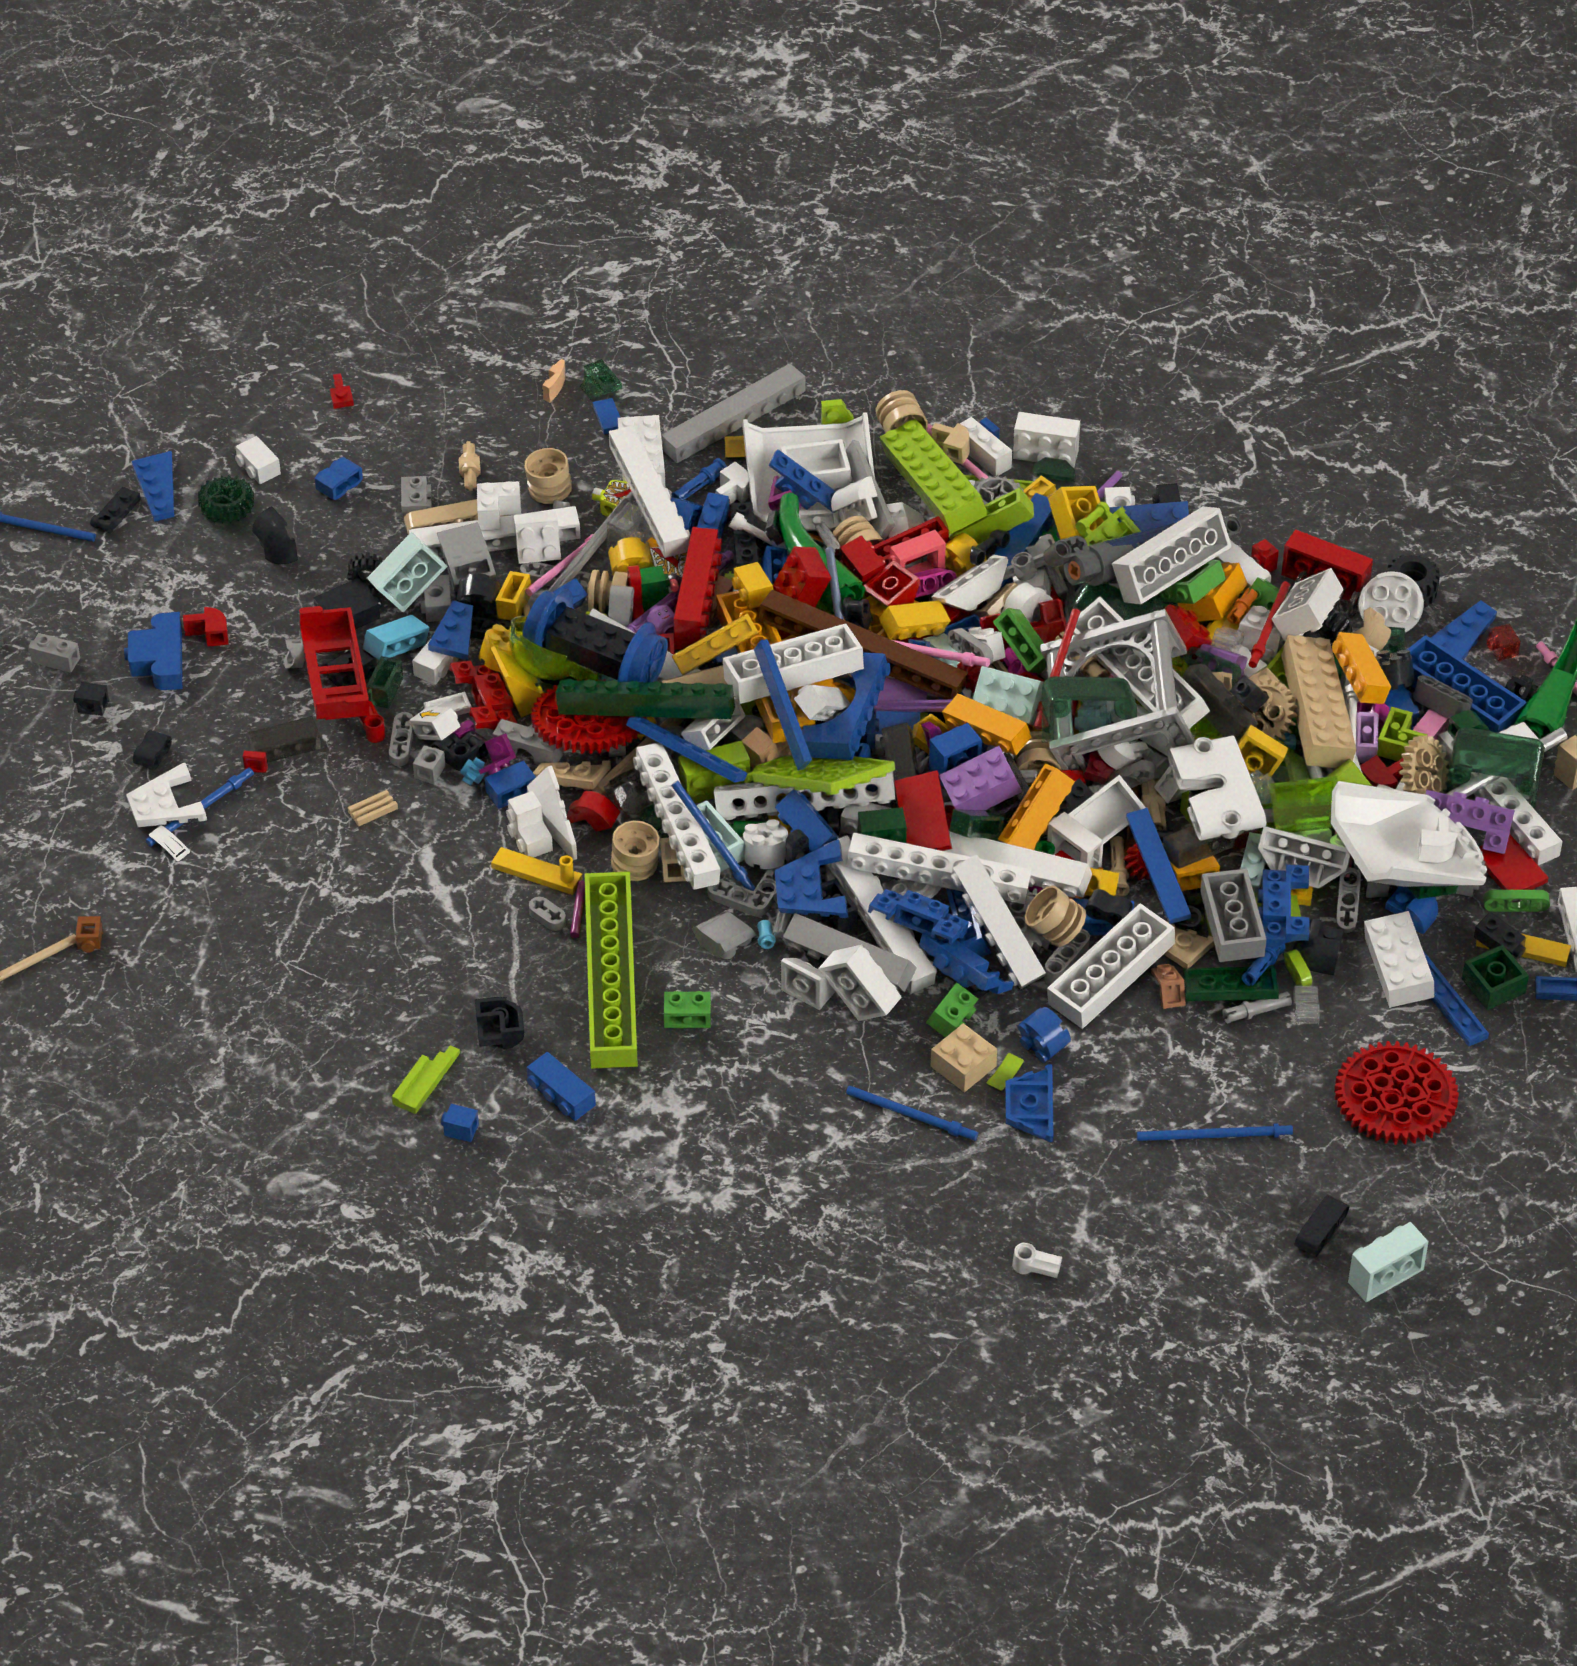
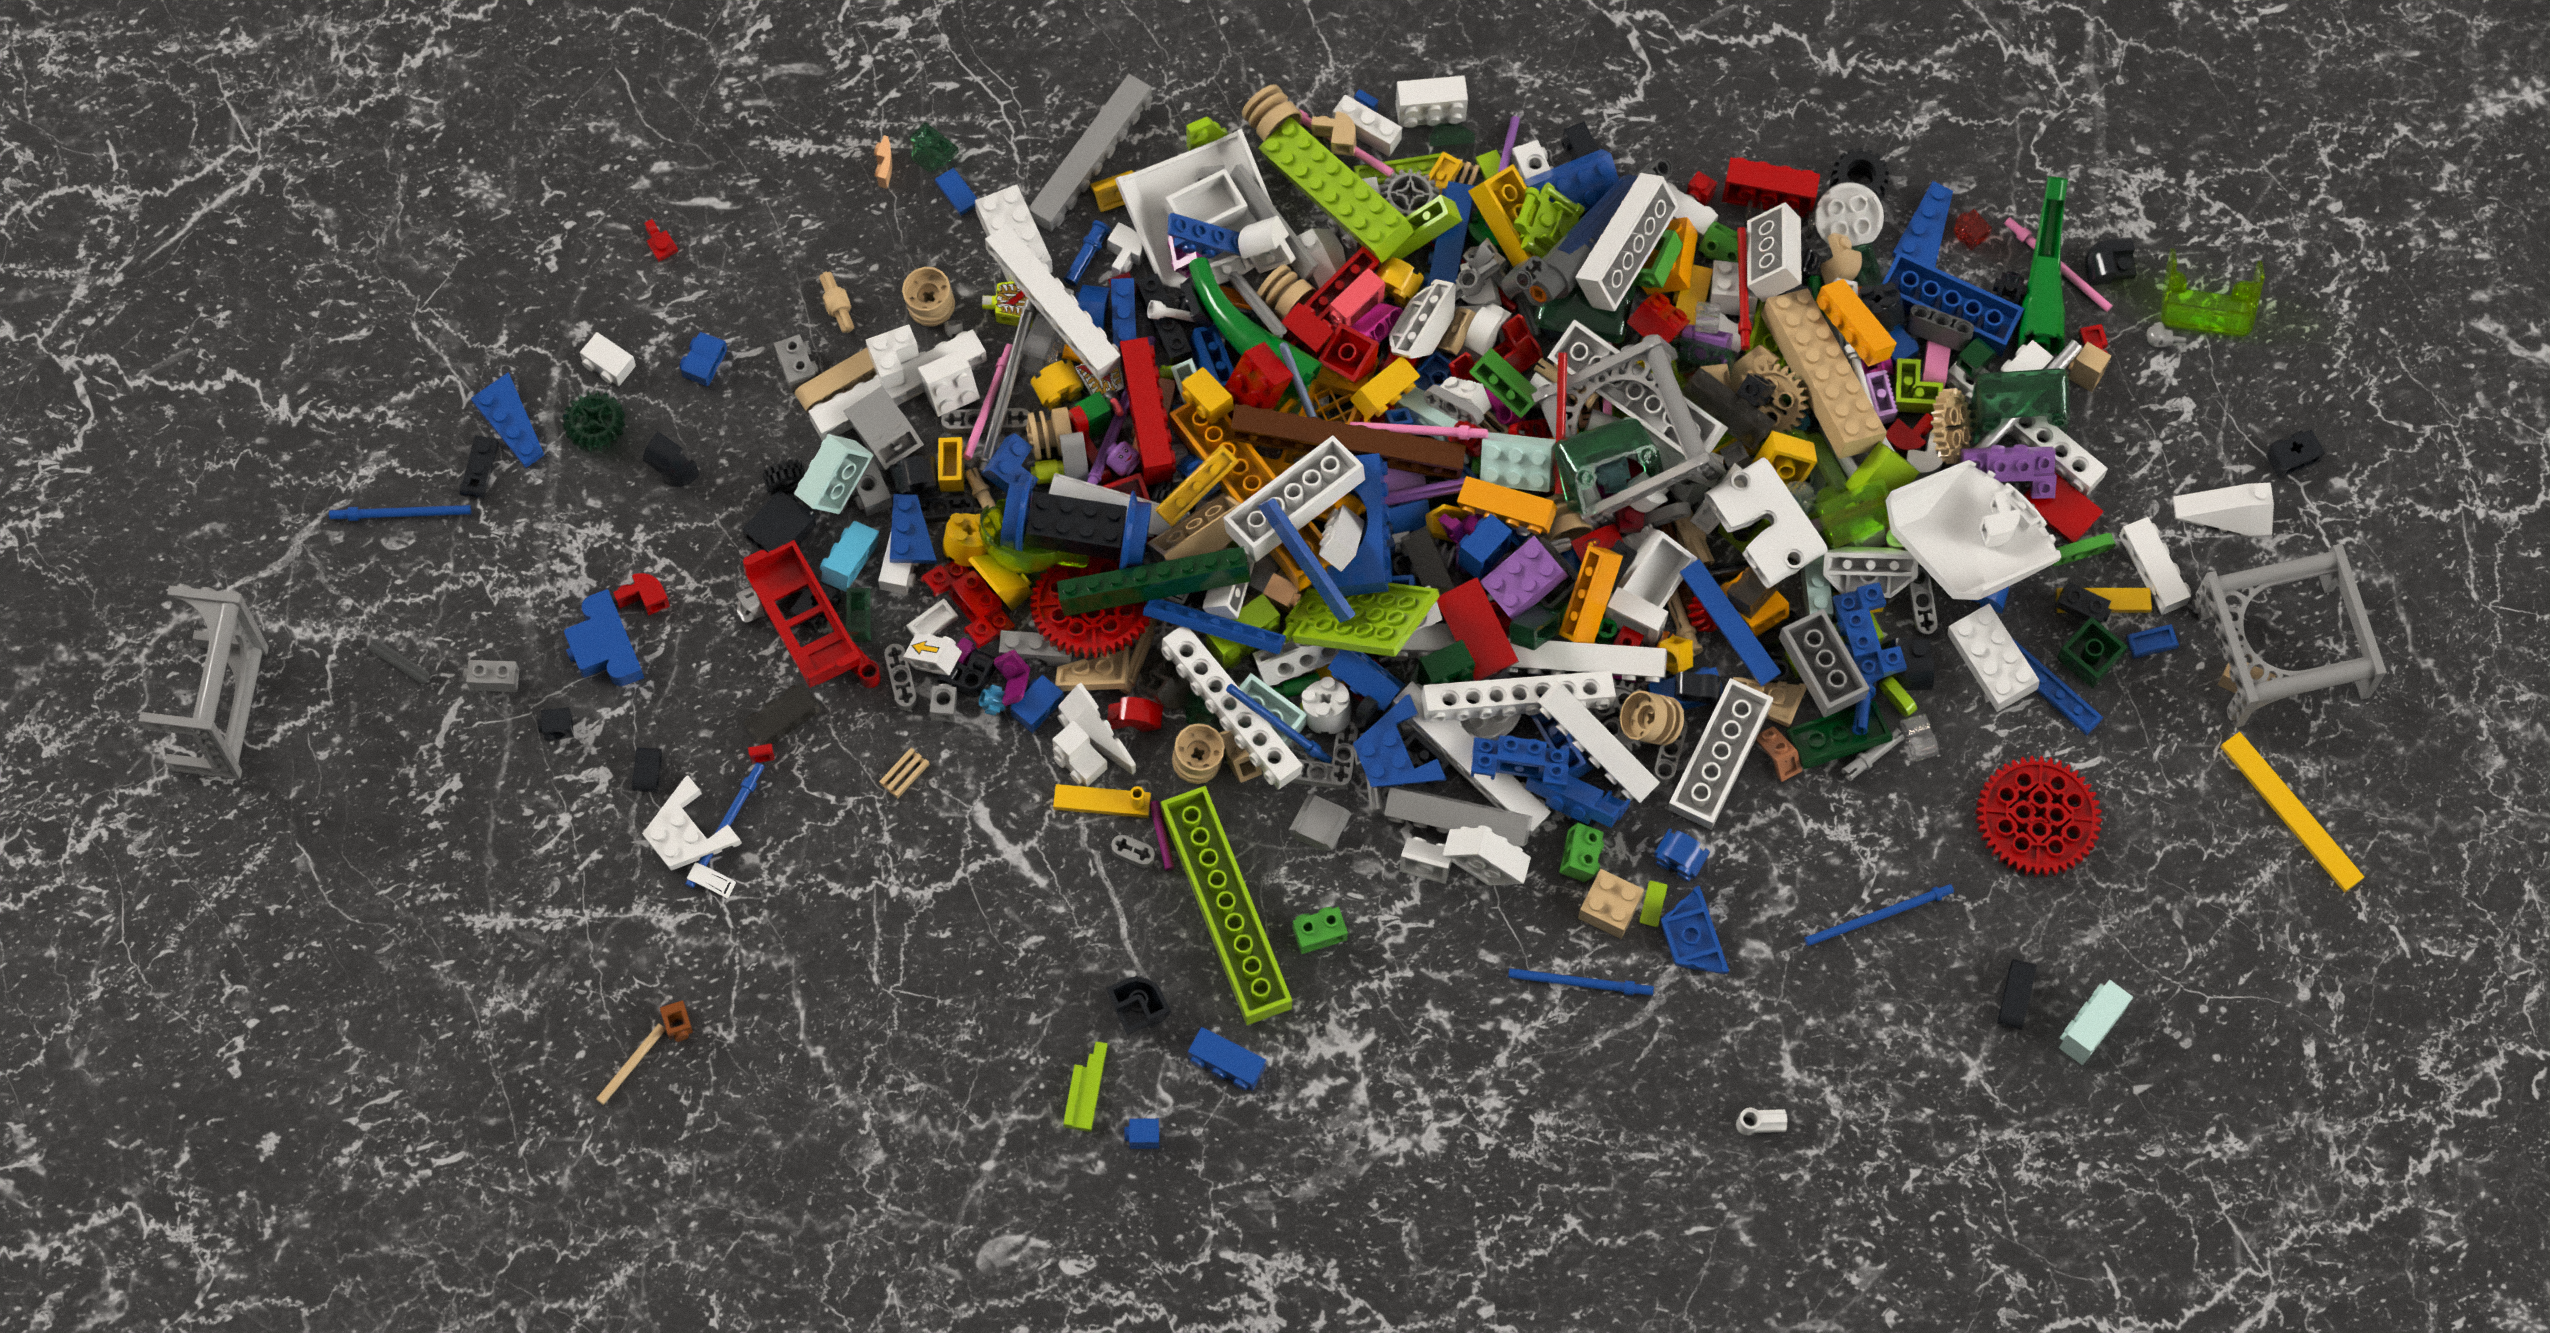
camera: 20 degrees left, 20 degrees up
(766, 938) = (1364, 816): medium azure pin -> none
(857, 612) = (1326, 403): black piece -> none
(998, 537) = (1430, 252): black bar -> none
(1242, 606) = (1704, 267): orange pin -> none

